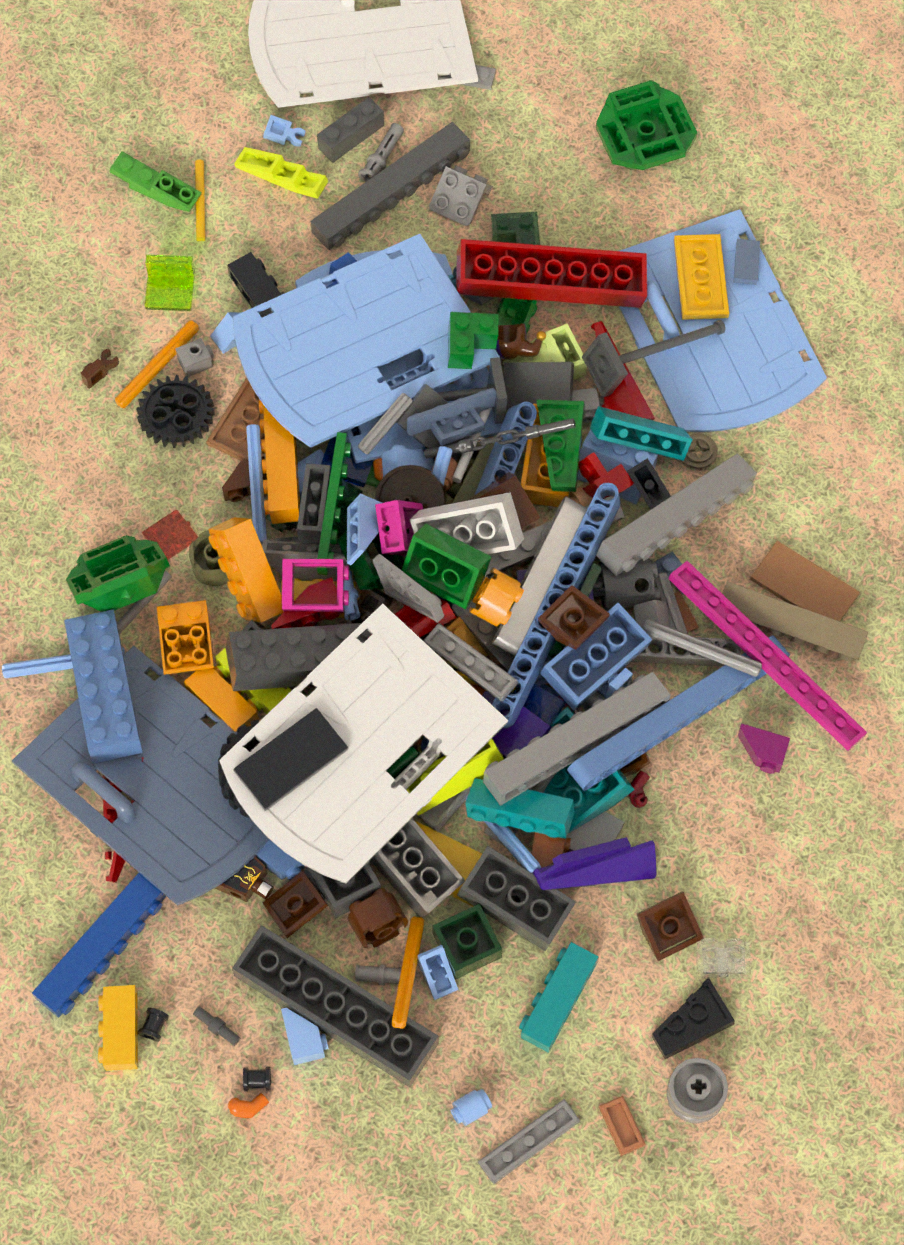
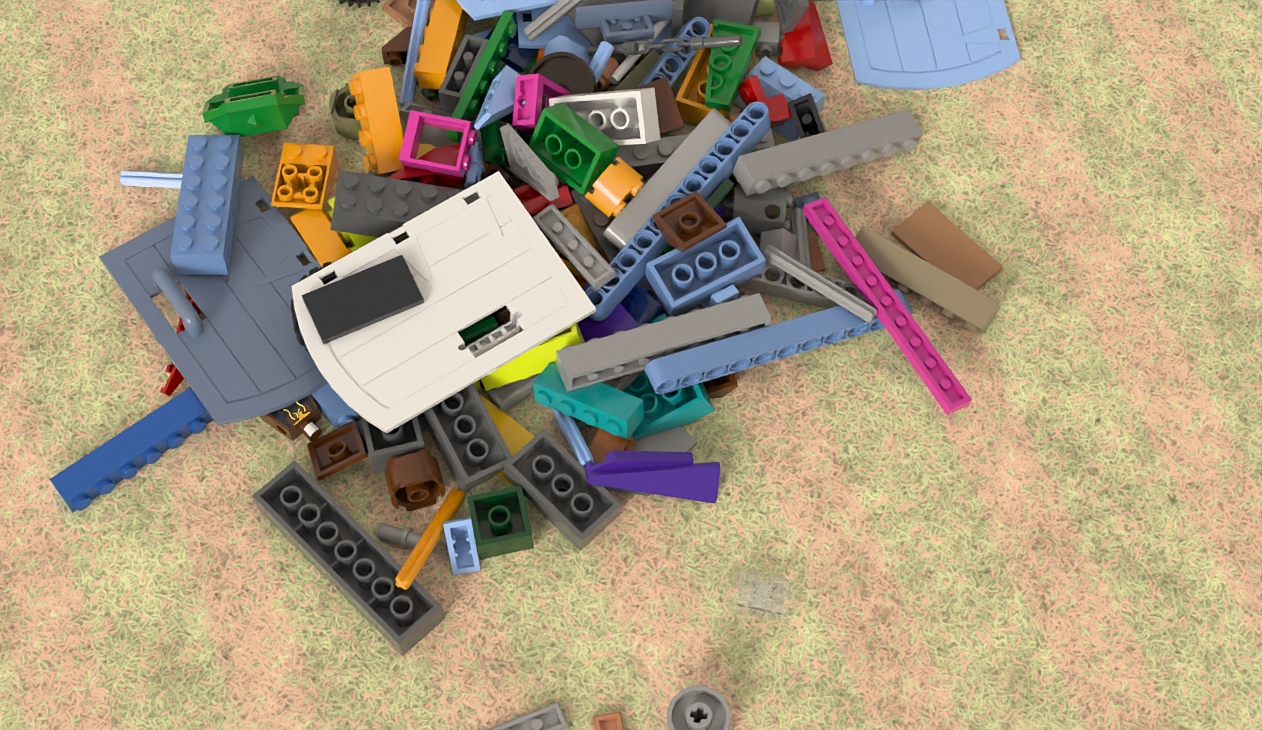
camera: 15 degrees right, 5 degrees down
(119, 1027) = (127, 533): yellow brick -> none
(139, 605) = (276, 140): light grey bar -> none
(153, 1024) = (162, 537): black bush -> none
(171, 534) = (321, 84): clear red piece -> none
(216, 1026) = (225, 553): dark grey bar -> none
(247, 1109) = (230, 640): orange arm -> none
(257, 1079) = (249, 612): black bush -> none
(303, 1038) = (306, 583): light blue slope -> none
(471, 1107) = (458, 688): light blue brick -> none
(559, 996) = (580, 598): teal brick -> none
(638, 796) = (717, 418): dark red arm -> none
(640, 433) = (811, 70): teal brick -> none
(668, 925) = (715, 550): reddish brown slope -> none
(693, 1022) = (718, 653): black wing -> none
(705, 444) = (878, 97): dark tan gear -> none
(764, 747) = (862, 397): magenta slope -> none

